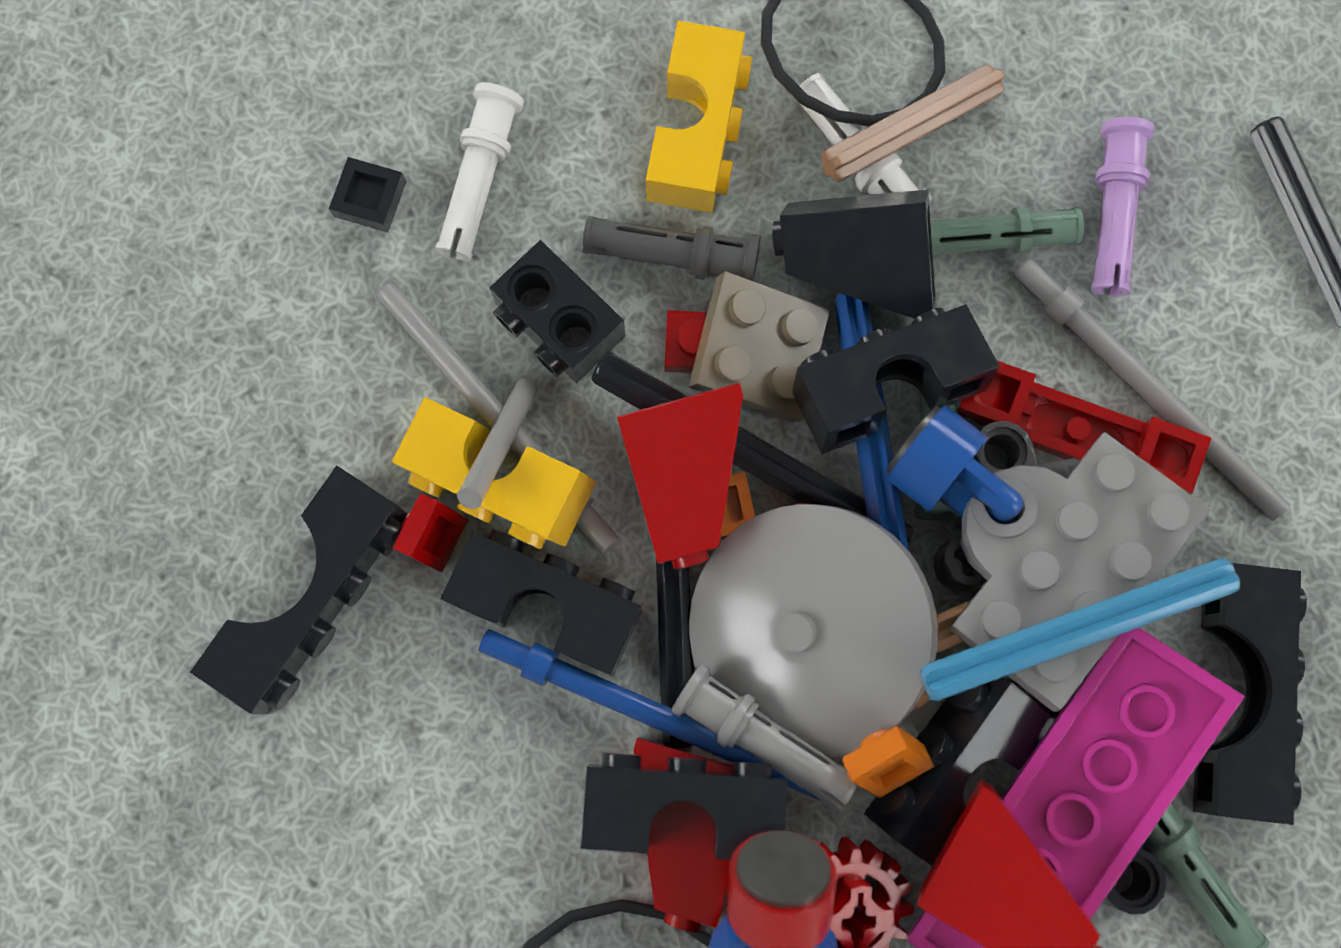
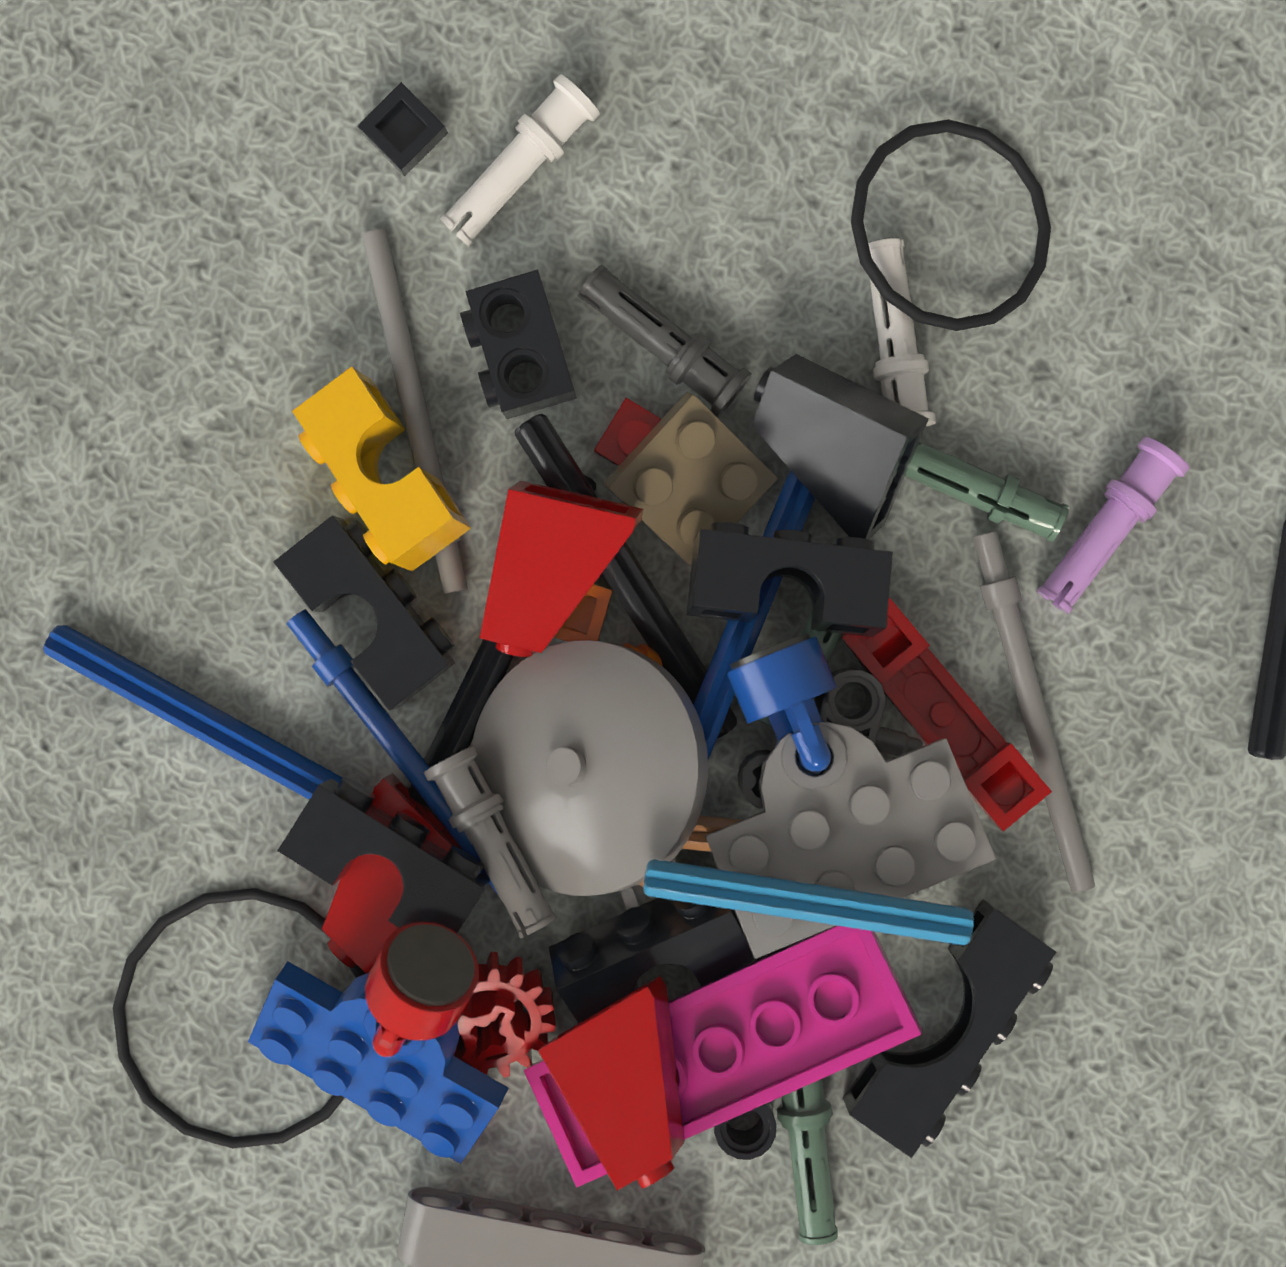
camera: 25 degrees right, 10 degrees up
(260, 660) = (225, 449): black arch -> none
(427, 780) = (186, 711): none -> blue axle
(430, 532) = (296, 493): red plate -> none
(497, 444) = (396, 447): light grey bar -> none
(706, 71) = (795, 178): yellow arch -> none
(887, 761) = (583, 918): orange plate -> none
(911, 123) = (958, 340): axle -> none

